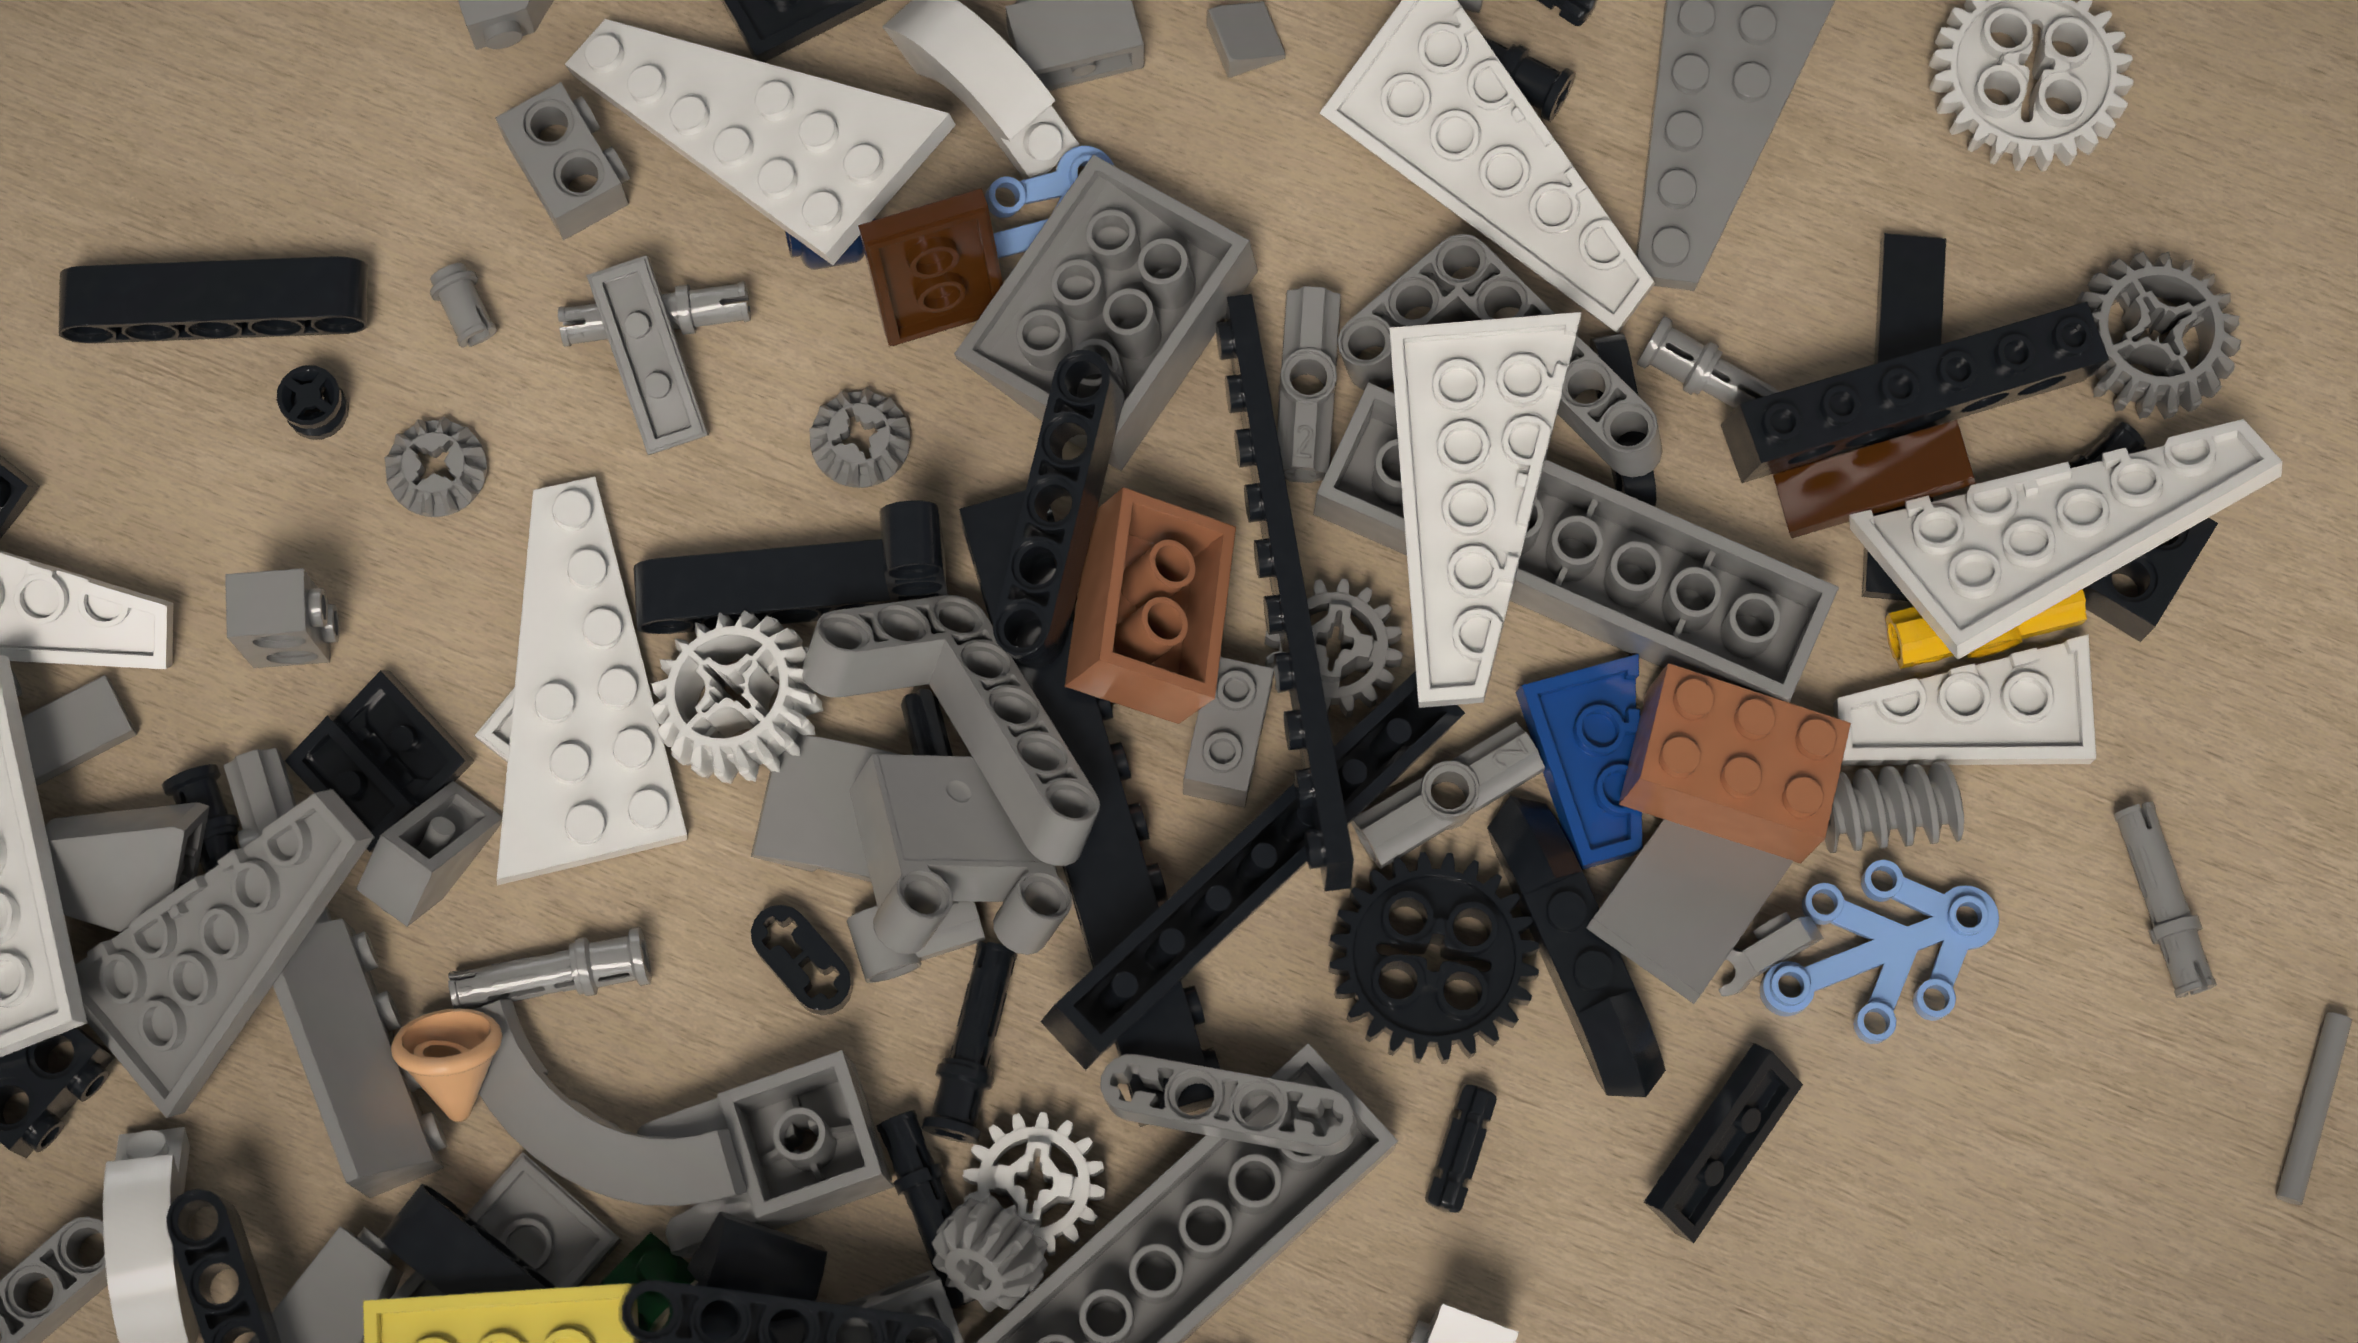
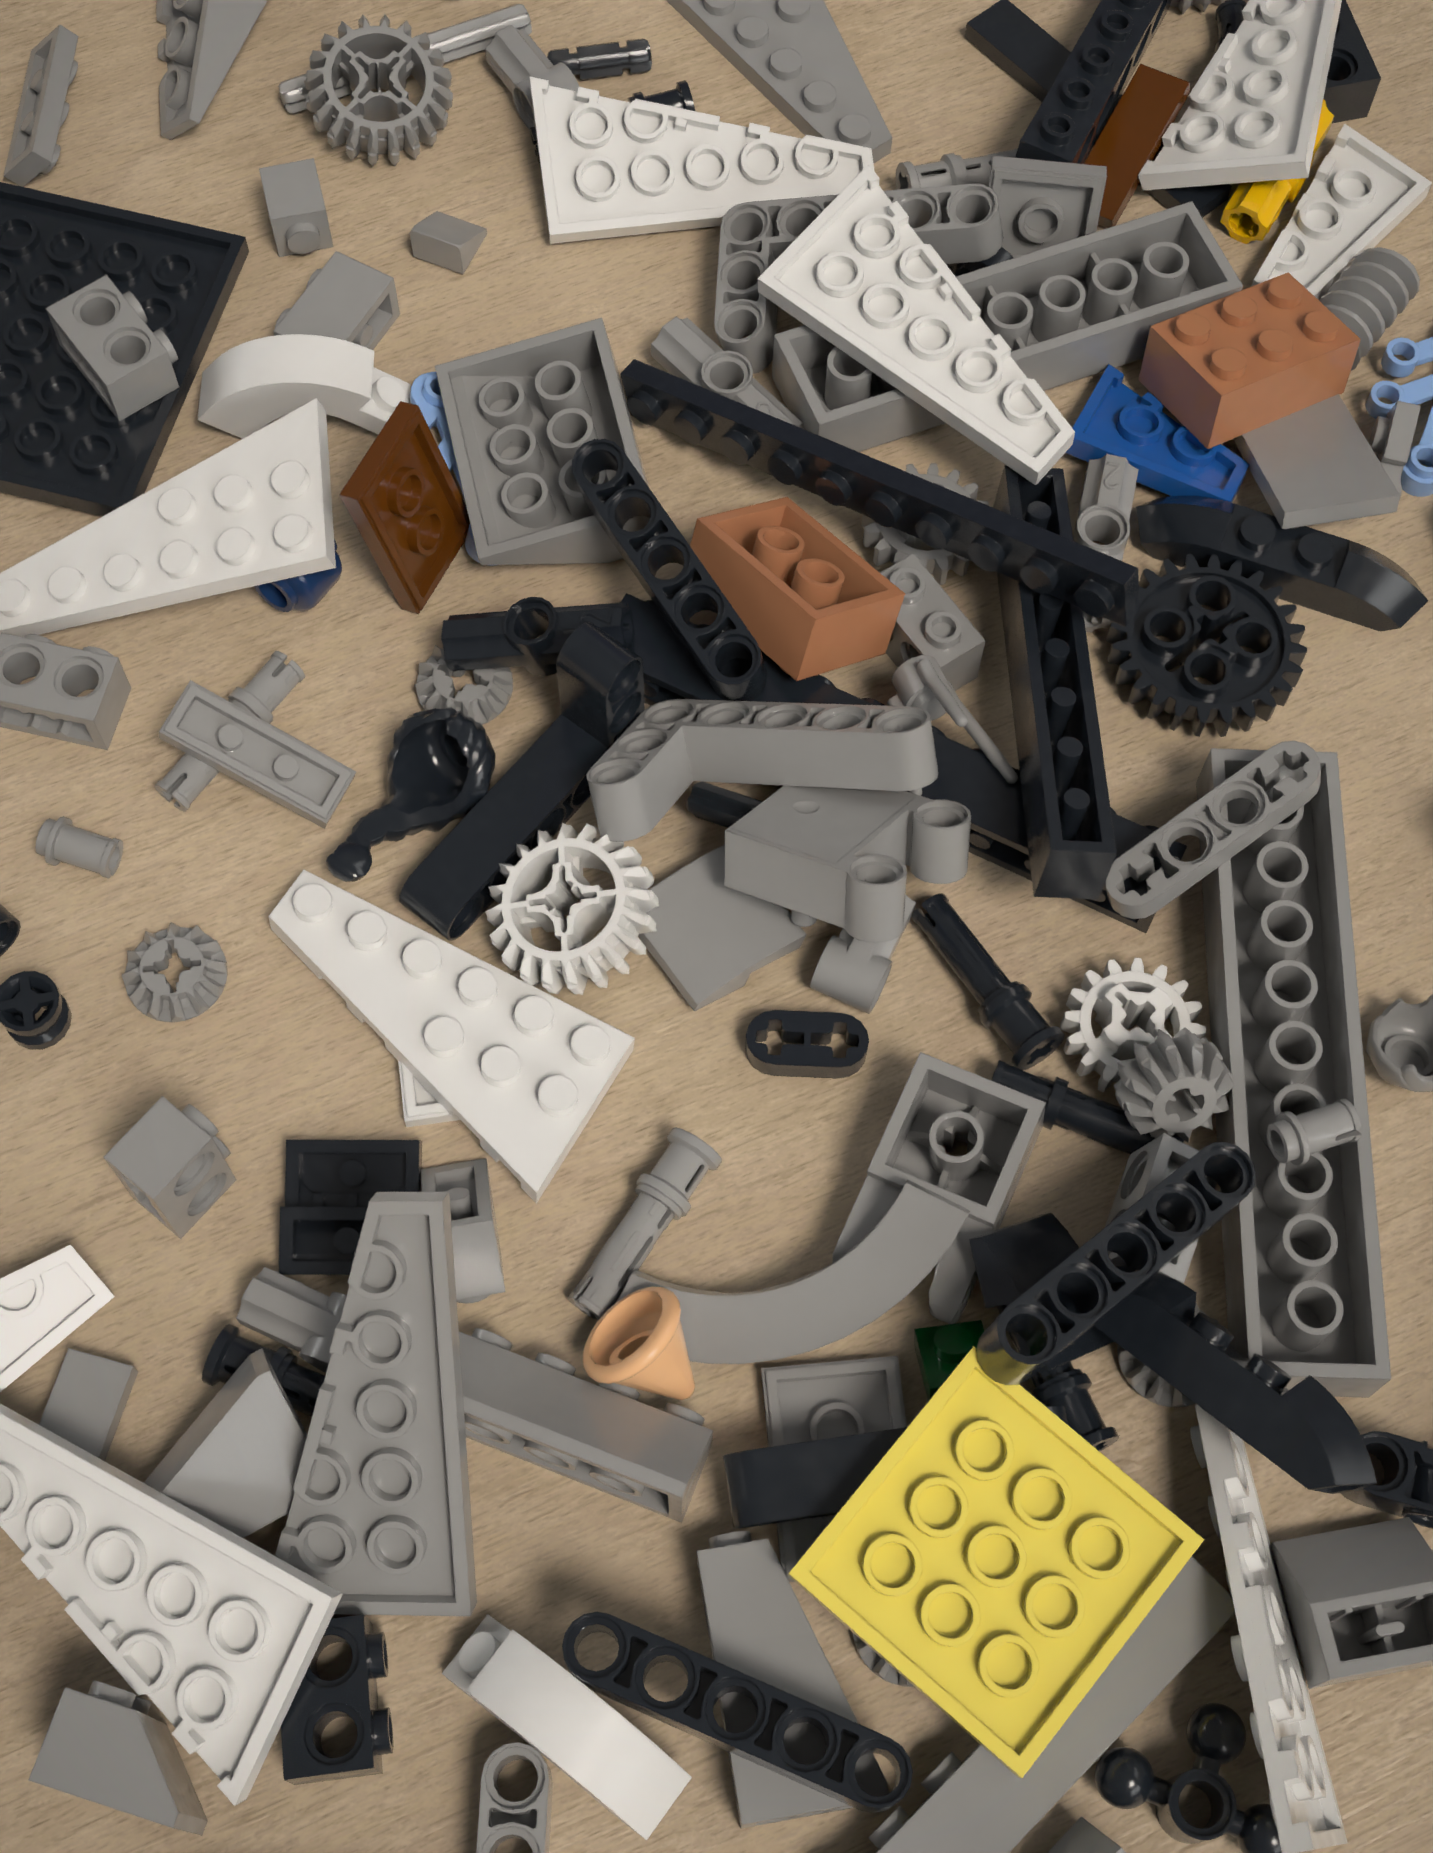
camera: 45 degrees left, 10 degrees down
(752, 498) = (434, 776): none -> black hair
(902, 441) = (511, 635): none -> black piece
(1148, 790) = (924, 686): none -> light grey plant
(1460, 1148) = (1357, 743): black axle -> none
(1715, 474) = (1045, 201): none -> light grey tile

